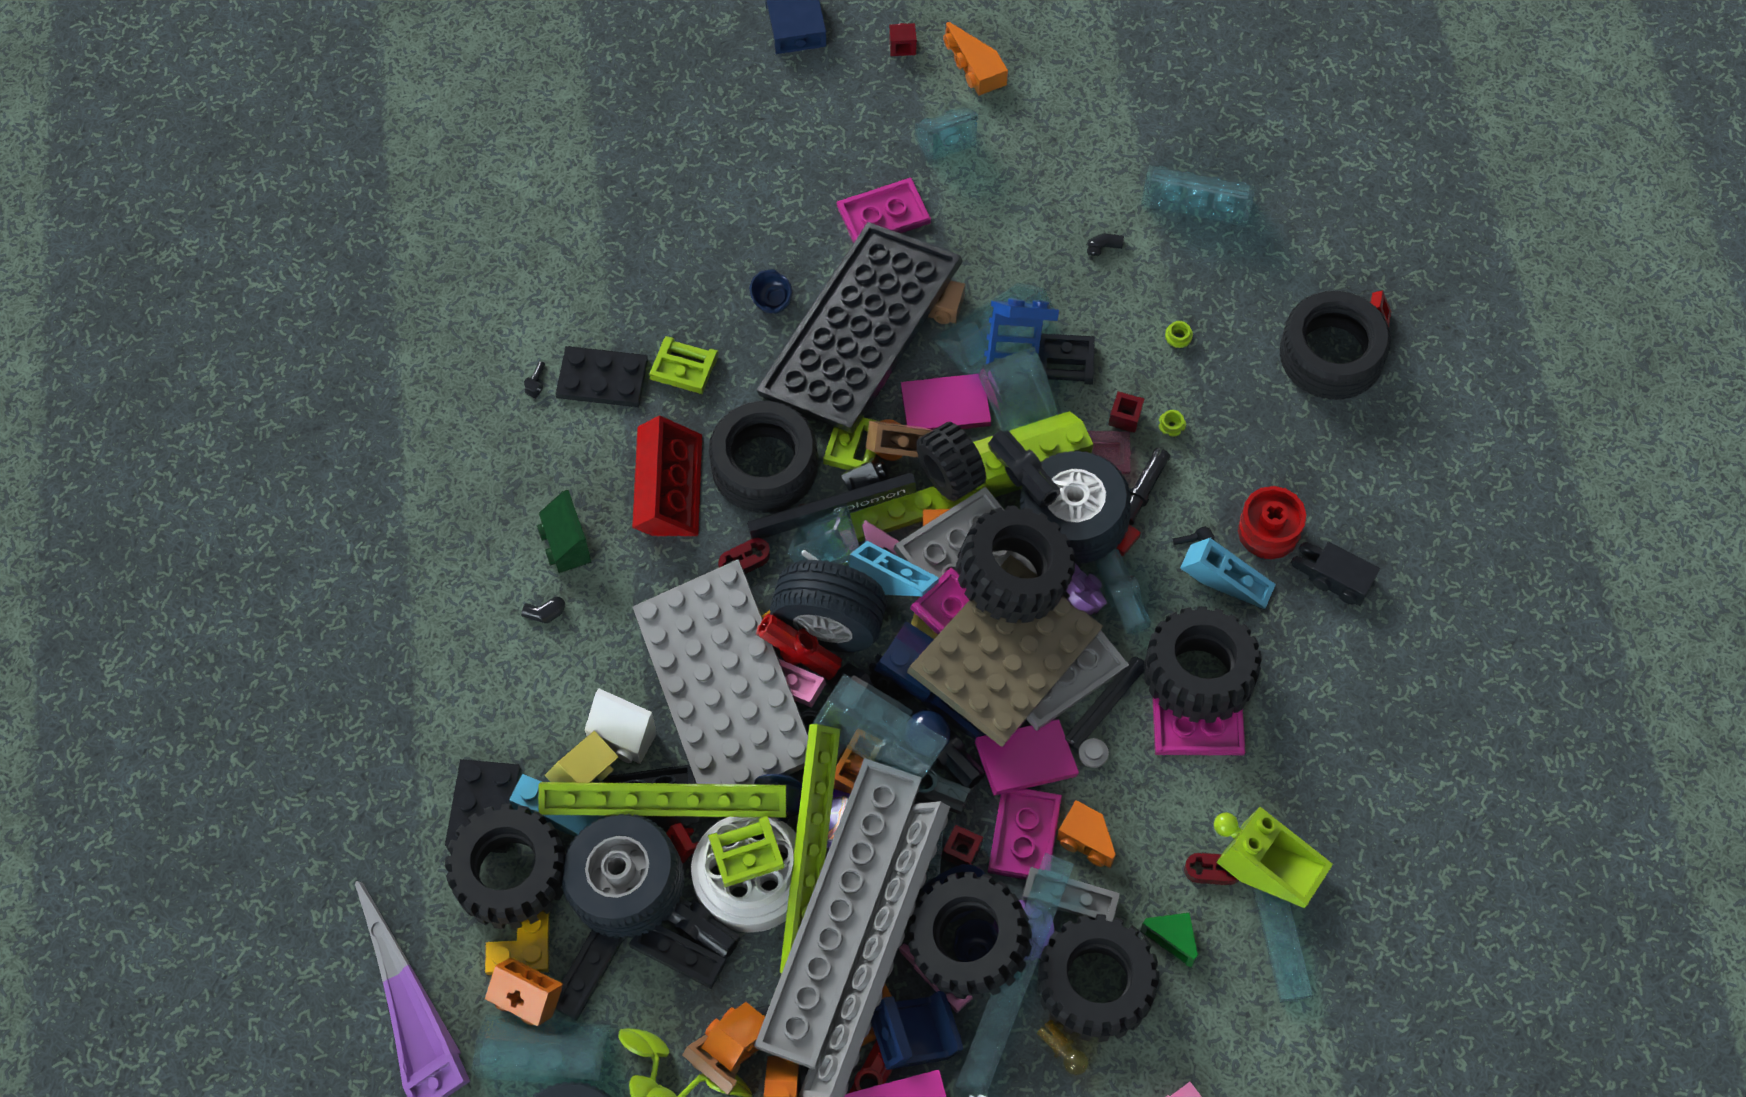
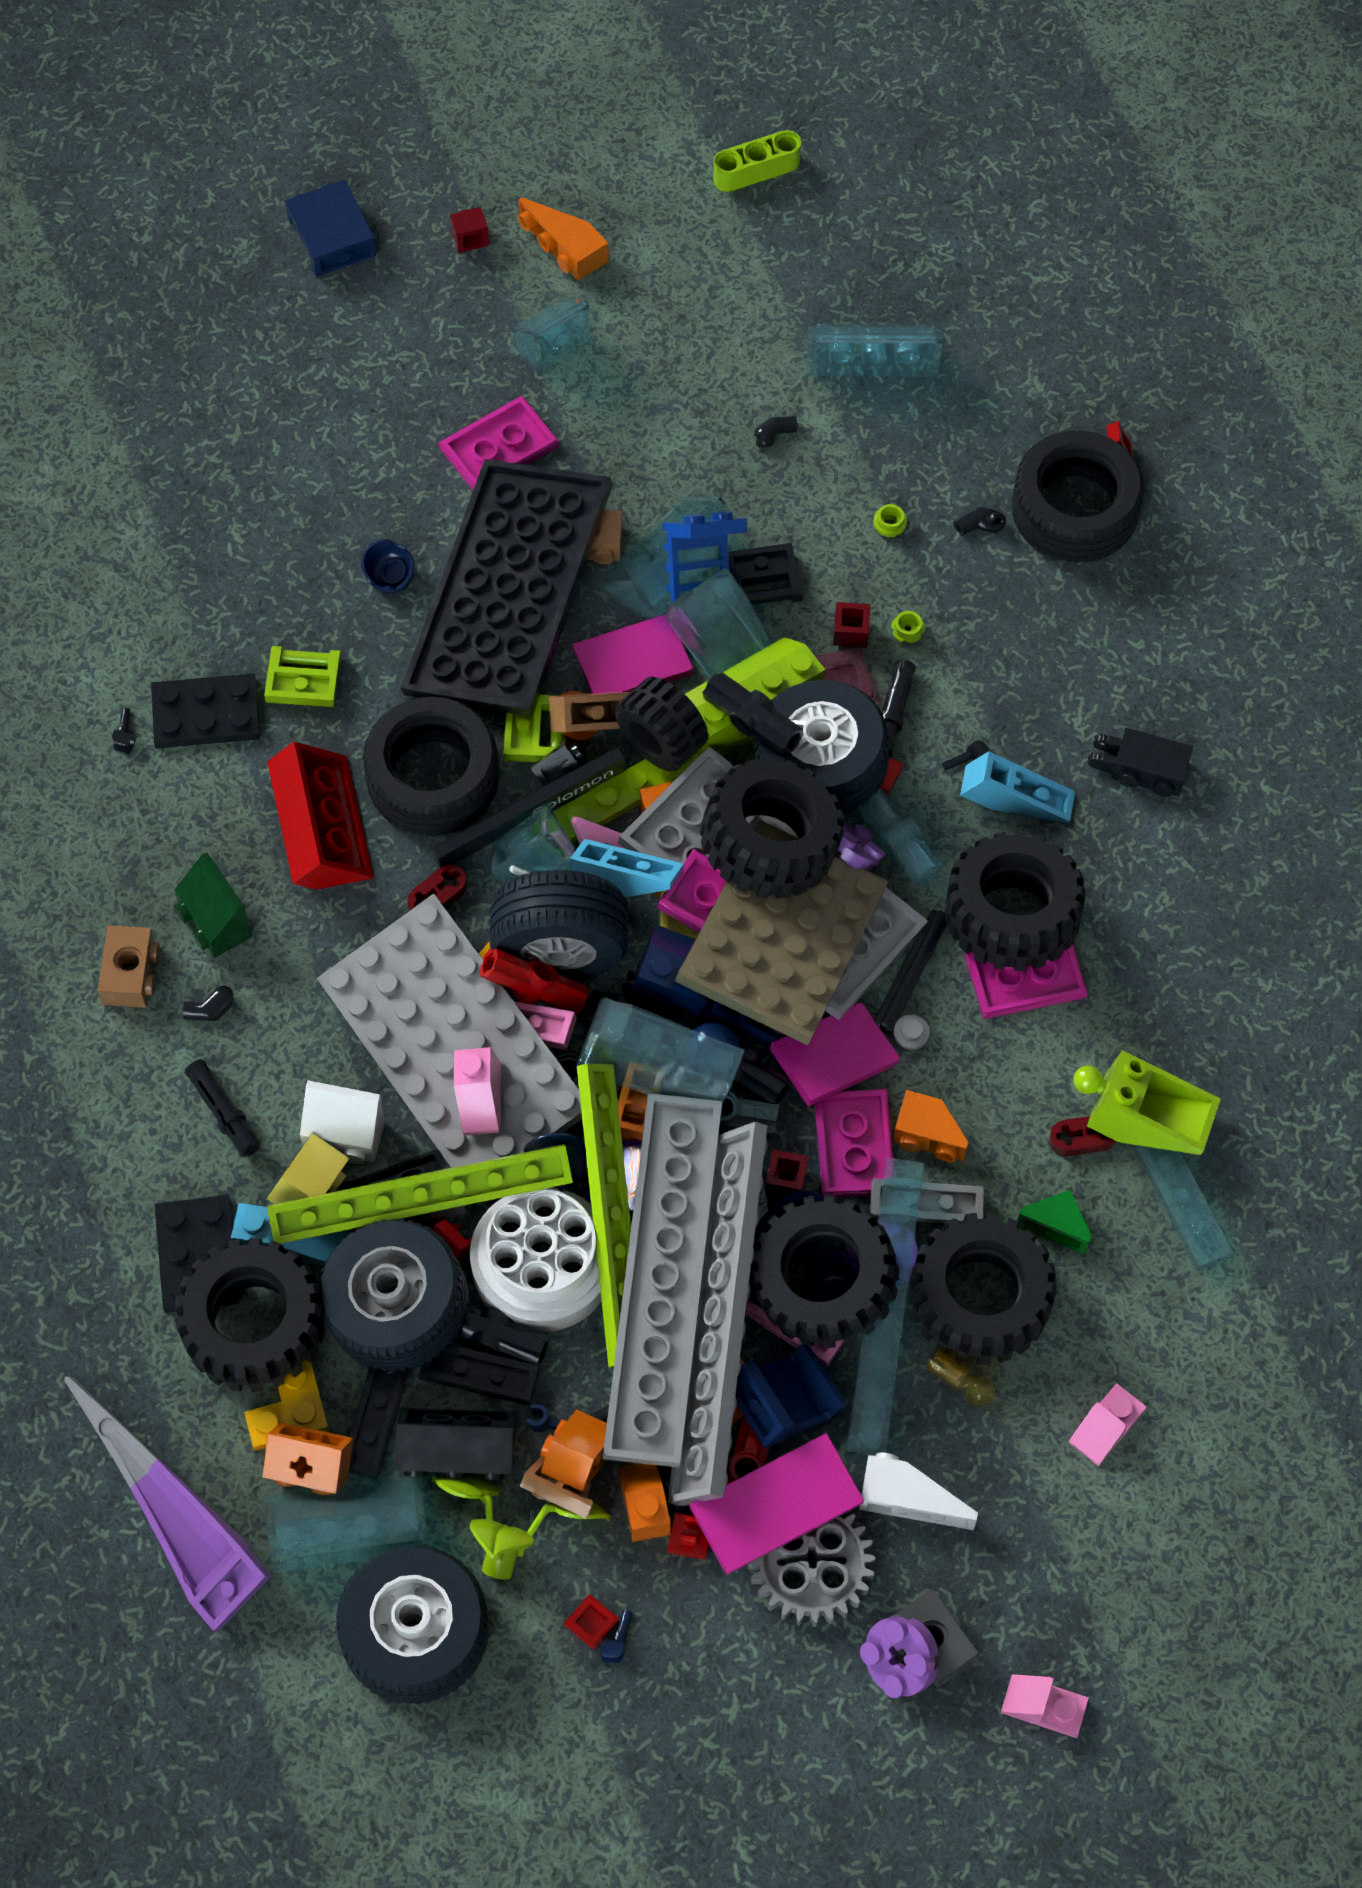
camera: 15 degrees left, 0 degrees up
(486, 551) = (124, 947): none -> medium nougat brick
(536, 705) = (229, 1118): none -> black pin
(643, 1005) = (455, 1442): none -> black slope
(721, 1005) = (545, 1423): none -> dark blue hand
(730, 725) = (478, 1090): none -> bright pink slope
(749, 860) = (543, 1241): lime plate -> none
(1143, 27) = (757, 160): none -> lime beam
(1252, 347) = (981, 519): none -> black arm
(1272, 522) = (1054, 719): red wheel -> none

